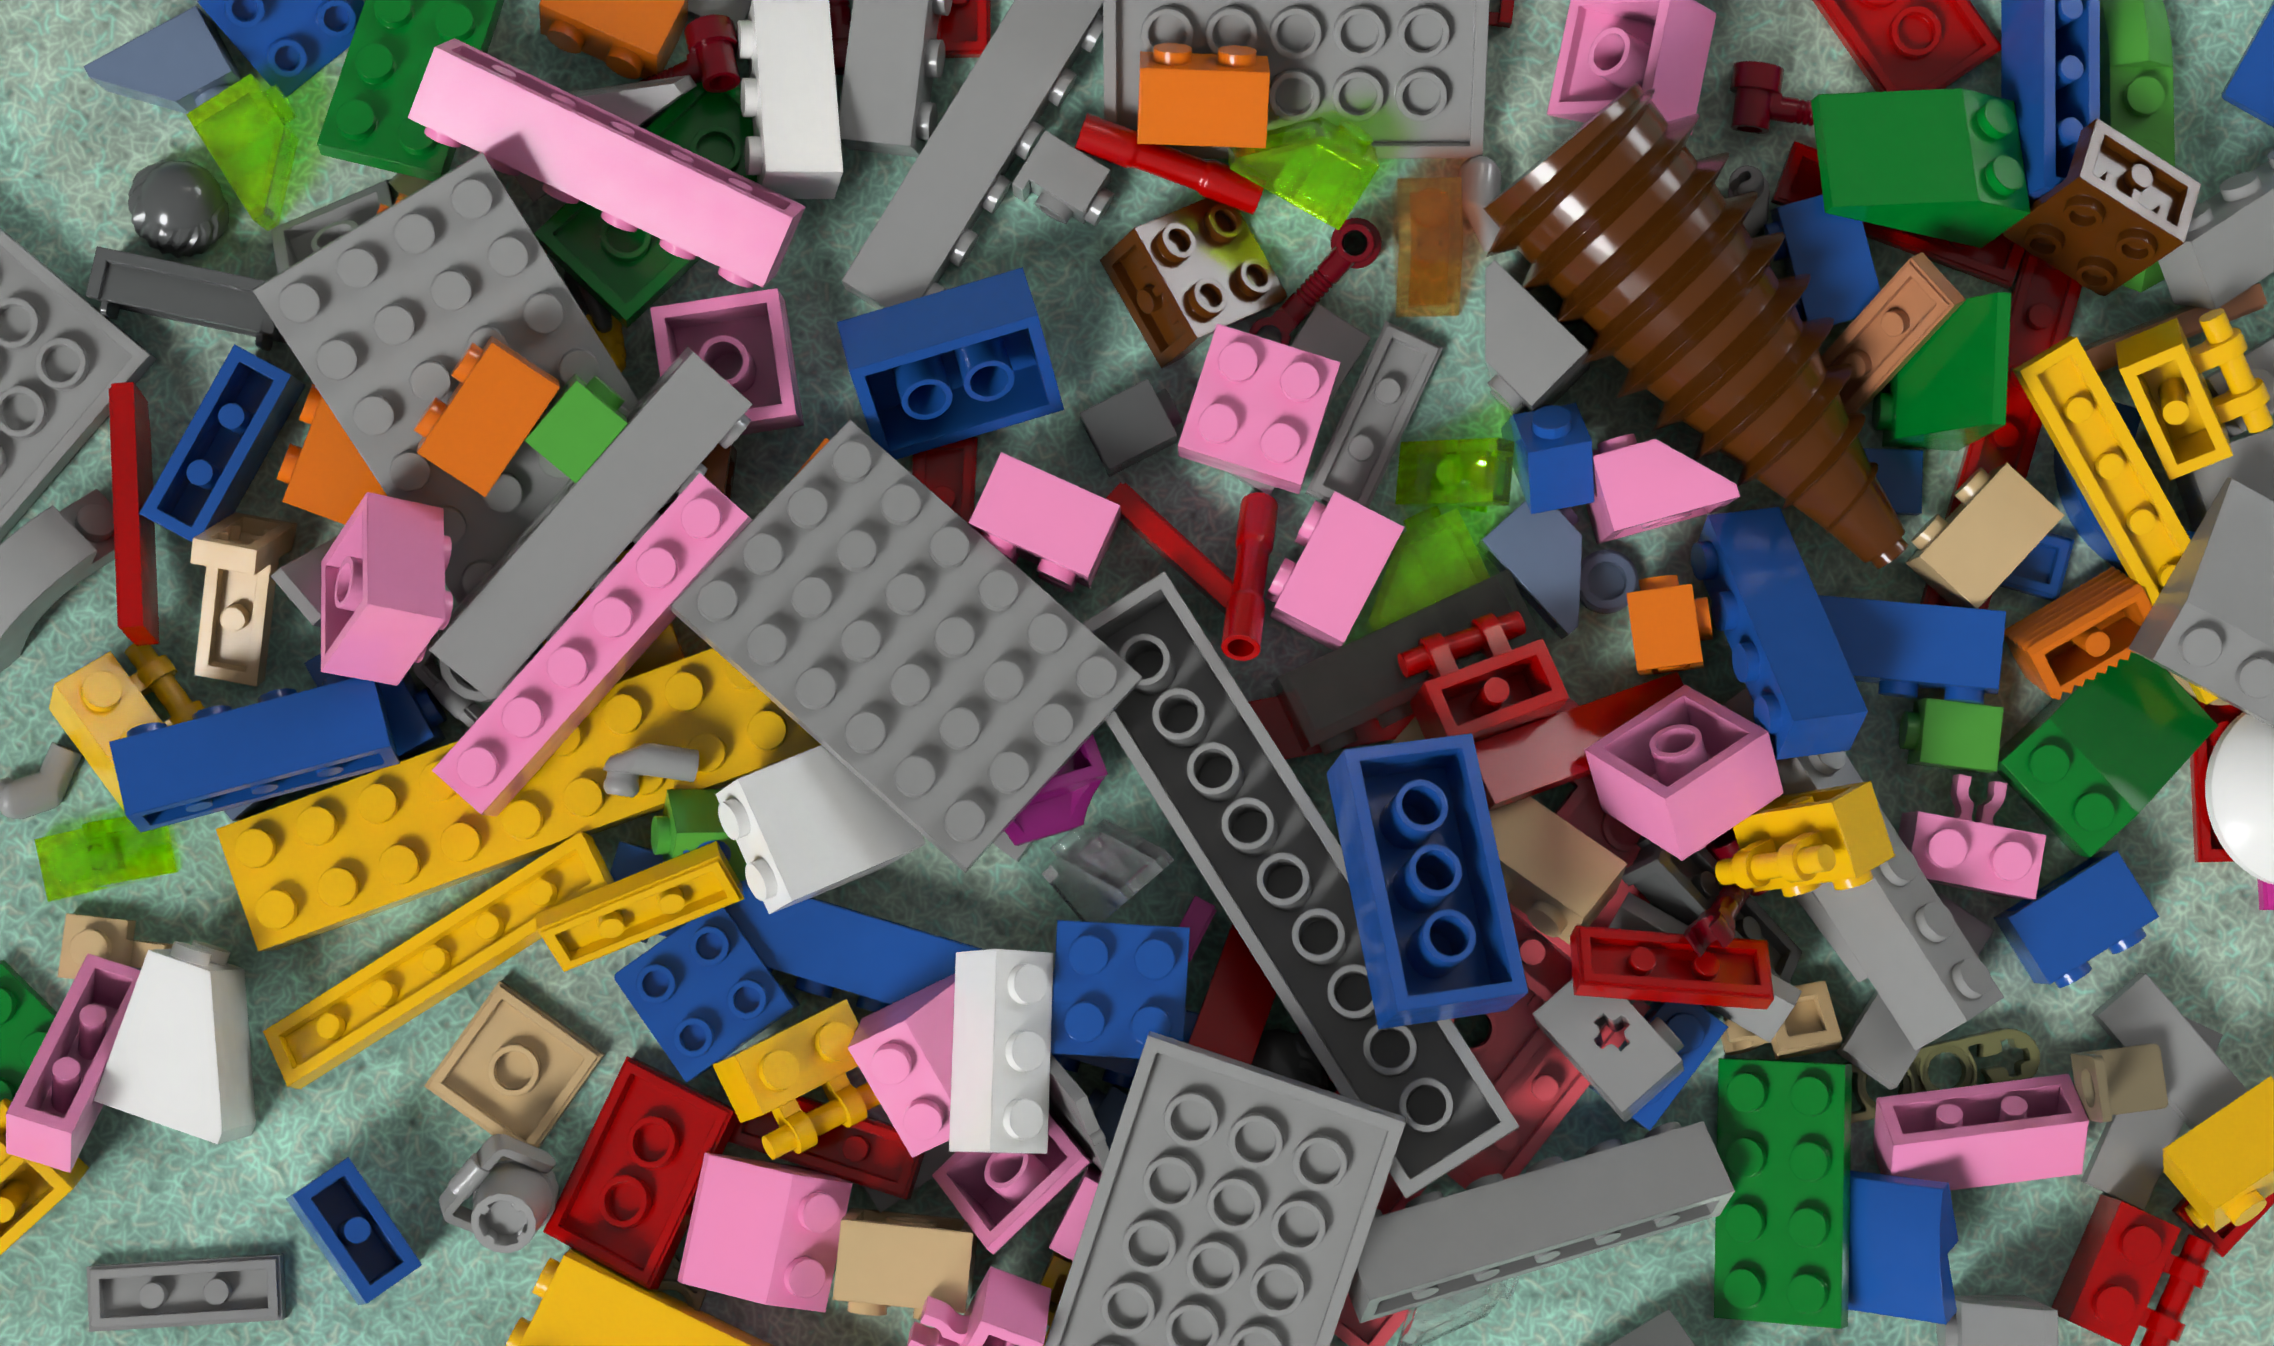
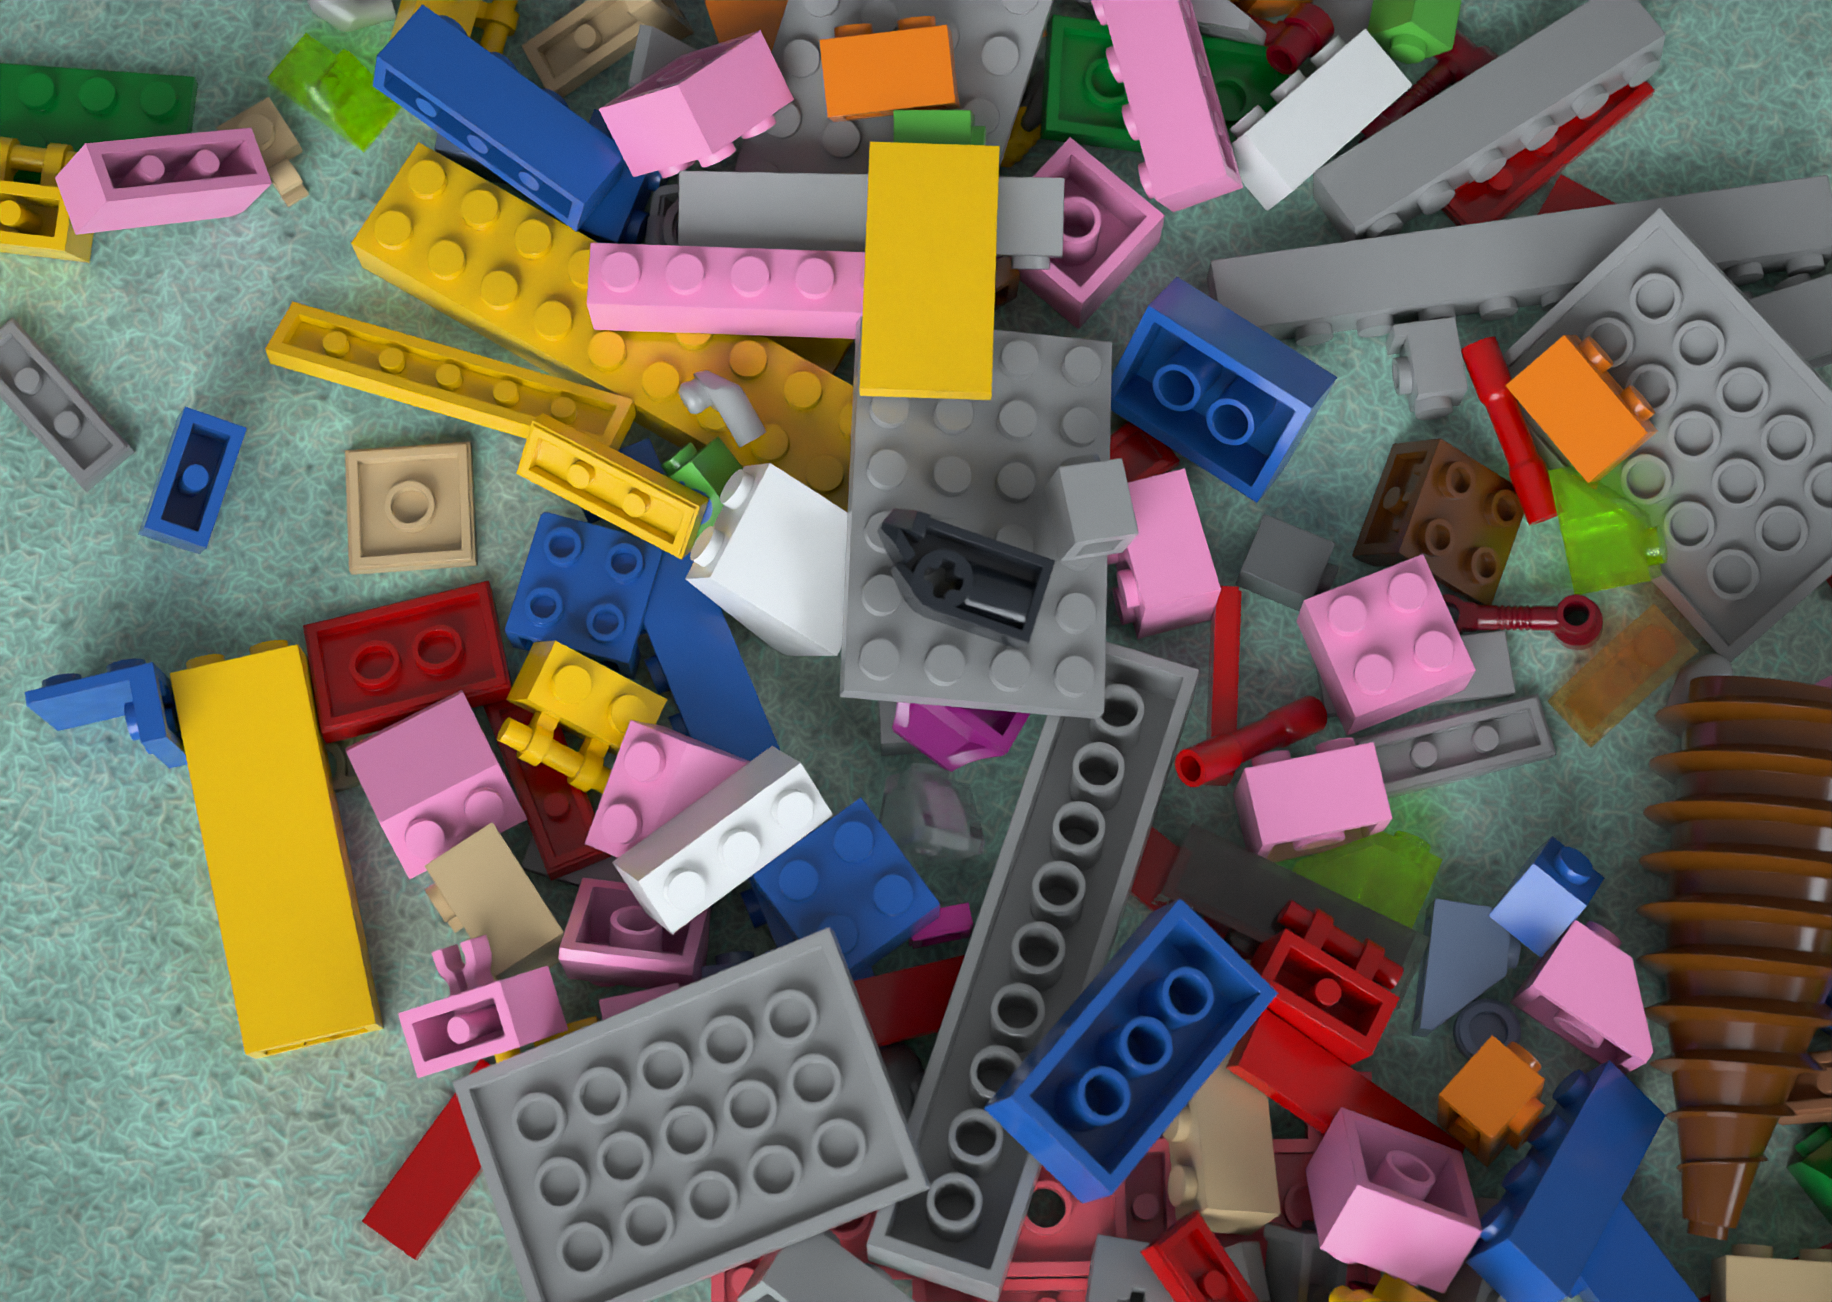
camera: 50 degrees right, 10 degrees down
(185, 1046) = (238, 248): white slope -> none
(510, 1192) = (313, 577): light grey piece -> none
(683, 523) = (929, 271): none -> yellow tile
(977, 555) = (1090, 507): none -> light grey brick
(983, 688) = (994, 583): none -> black piece
(1076, 1113) = (724, 930): light grey piece -> none
(1455, 473) = (1469, 839): clear neon green slope -> none
(1525, 347) = (1614, 805): light grey slope -> none
(1901, 477) = (1772, 1198): blue tile -> none

